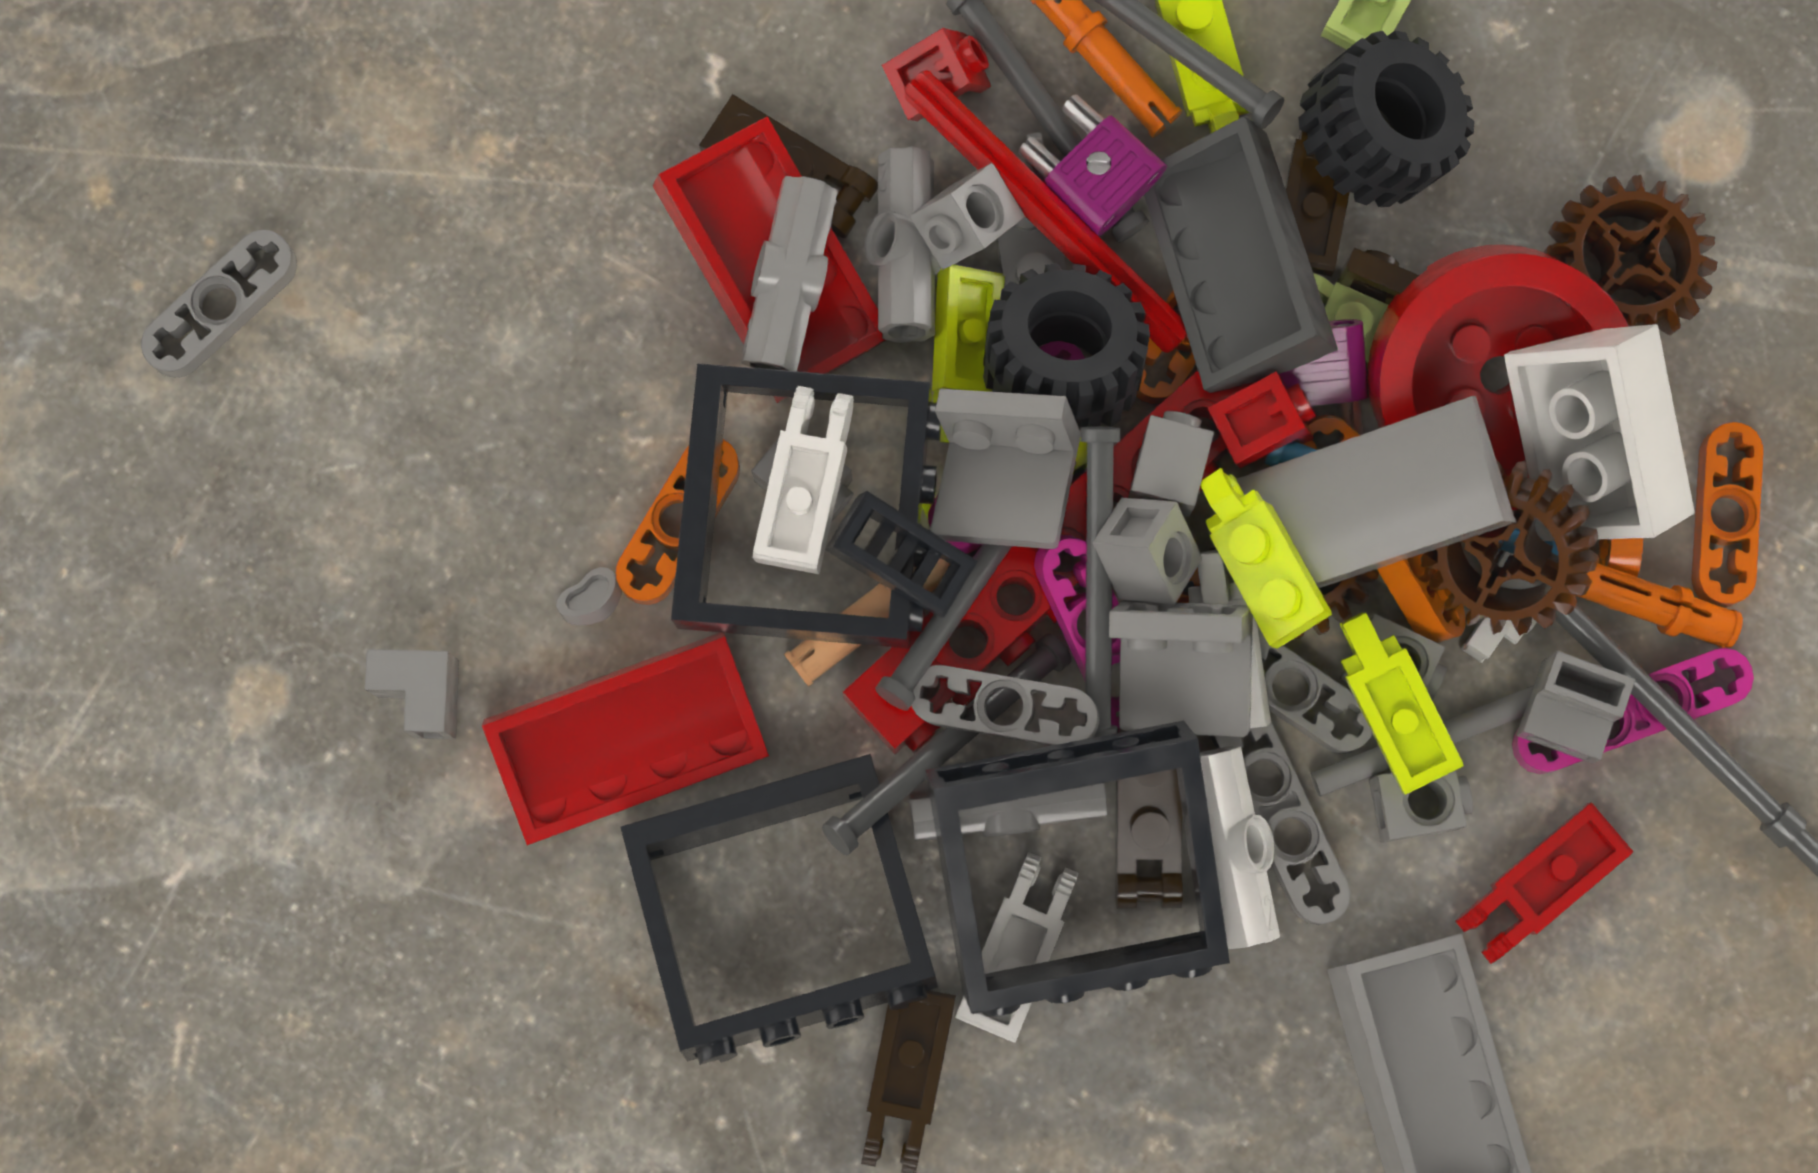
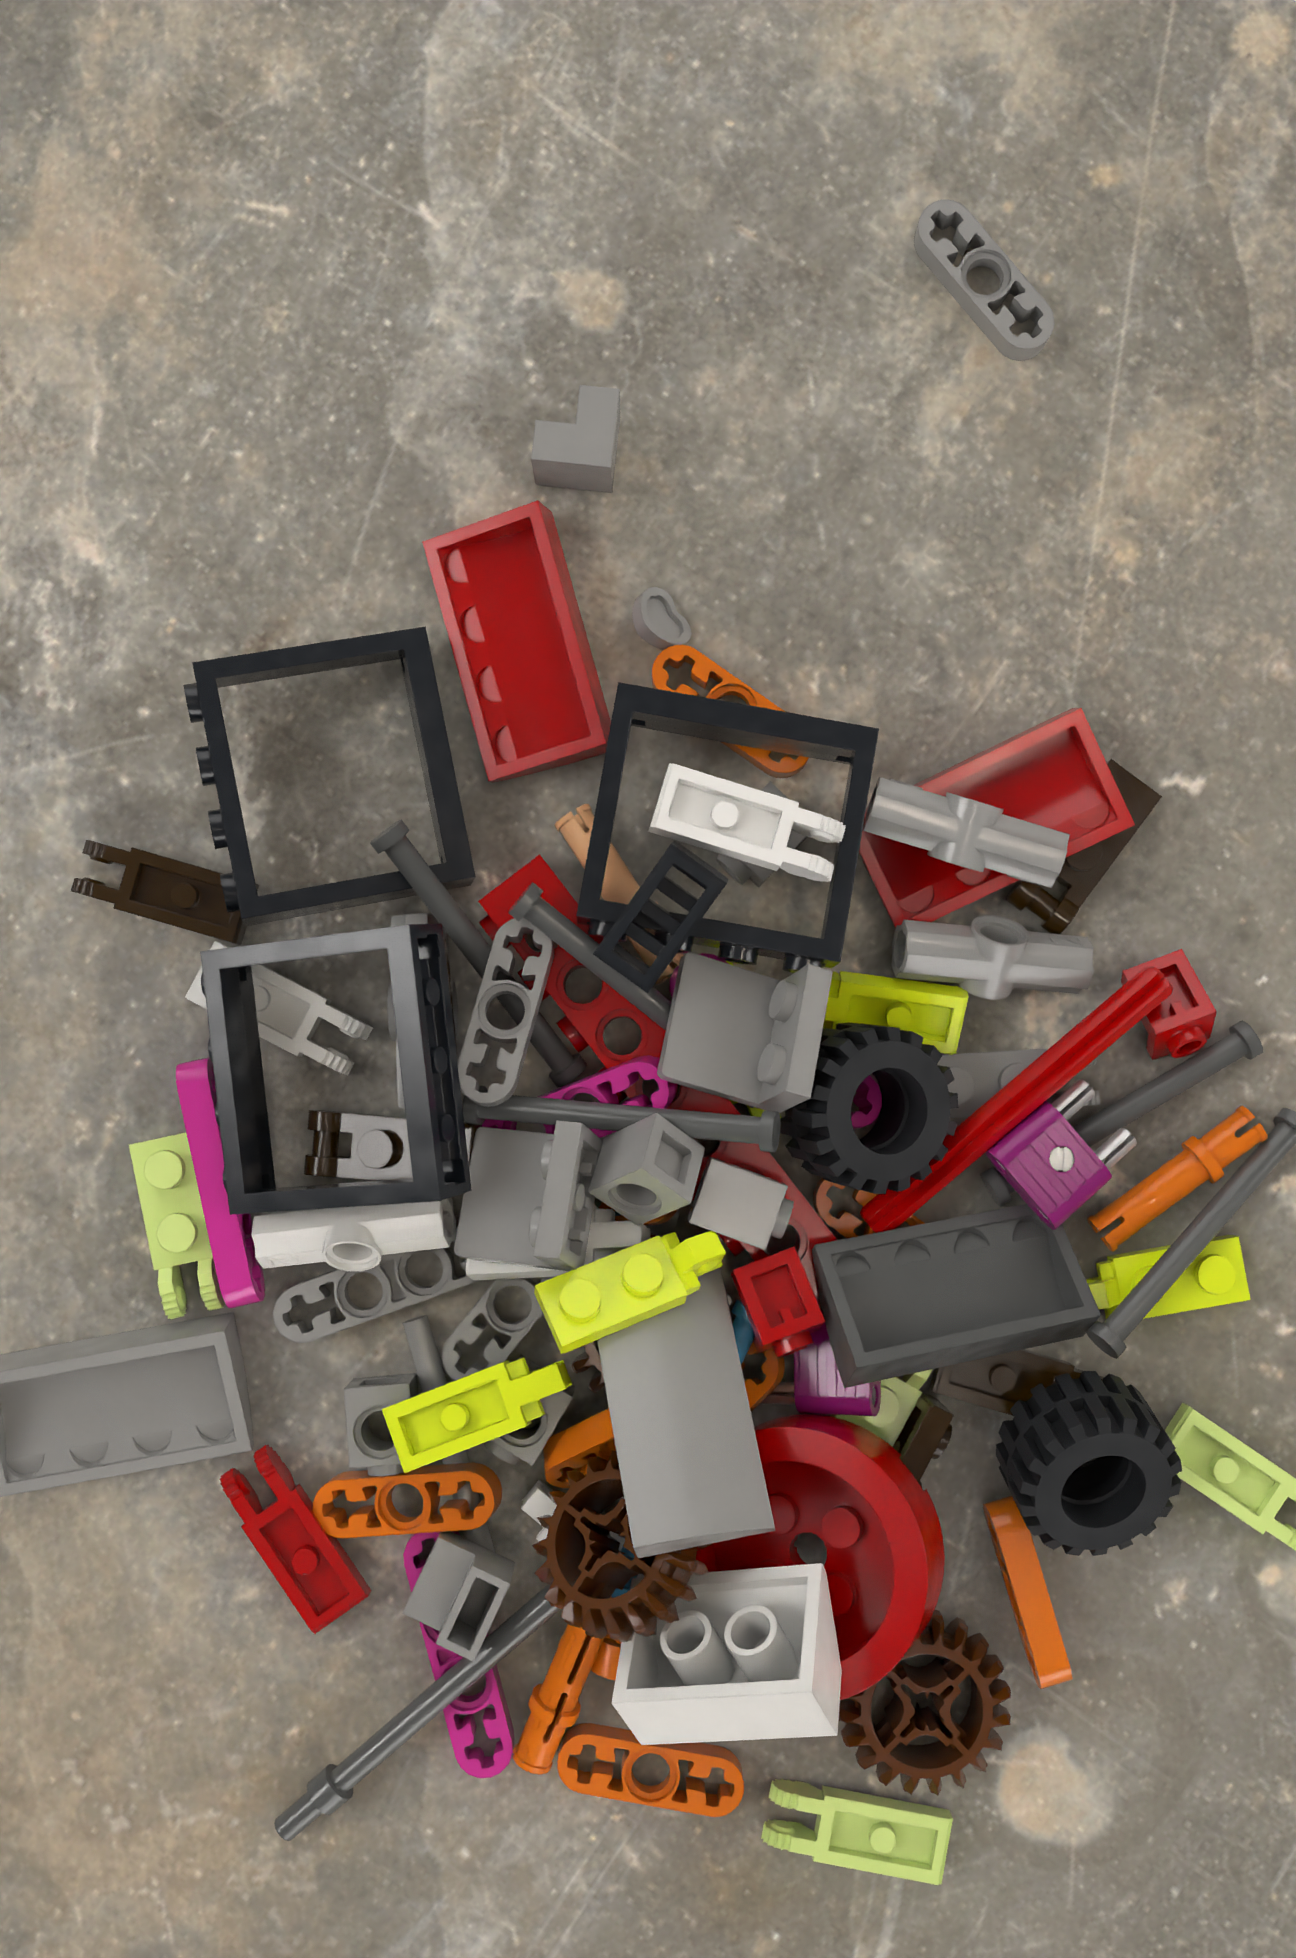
camera: 90 degrees right, 5 degrees up
(967, 216) = (1015, 1019): light grey brick -> none
(1190, 993) = (229, 1235): none -> dark pink beam
(1234, 1033) = (174, 1220): none -> yellowish green hinge
(1499, 722) = (454, 1513): none -> orange beam
(1516, 168) = (1027, 1593): none -> orange beam
(1760, 306) = (862, 1831): none -> yellowish green hinge

